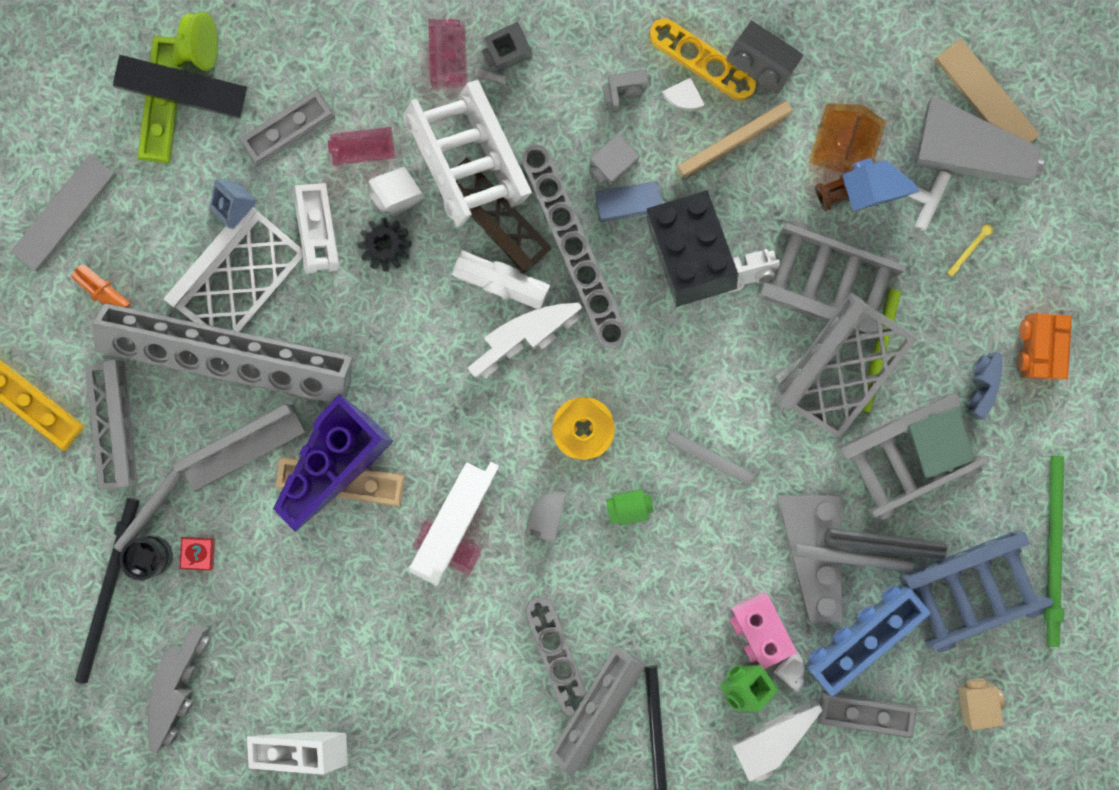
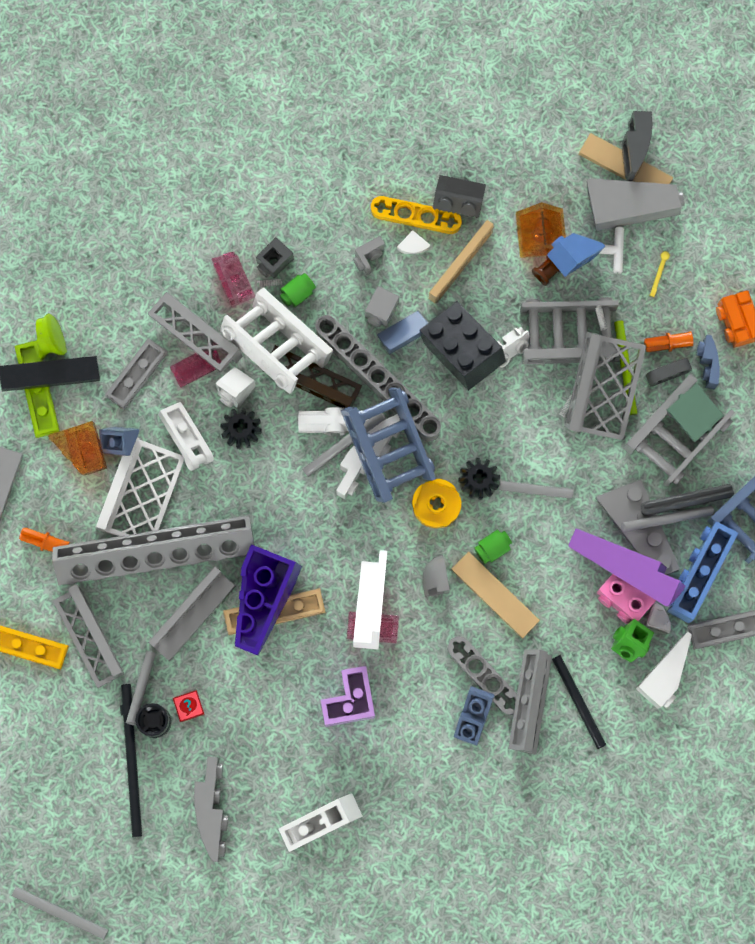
camera: 30 degrees left, 10 degrees down
(187, 193) = (81, 447): none -> clear orange wing
(385, 104) = (197, 328): none -> light grey fence
(388, 633) = (355, 704): none -> lavender brick
(501, 312) = (340, 446): none -> light grey bar
(519, 99) = (297, 290): none -> bright green brick
(522, 324) = (365, 441): none -> sand blue fence
(525, 698) = (474, 715): none -> sand blue slope
(609, 565) = (495, 595): none -> tan tile
(650, 428) = (470, 474): none -> black gear
(781, 601) = (632, 567): none -> medium lavender wedge
(875, 278) = (600, 318): none -> white leg
(926, 377) = (668, 372): none -> dark grey beam
(946, 340) = (669, 342): none -> orange axle
(1013, 73) = (636, 142): none -> dark grey slope

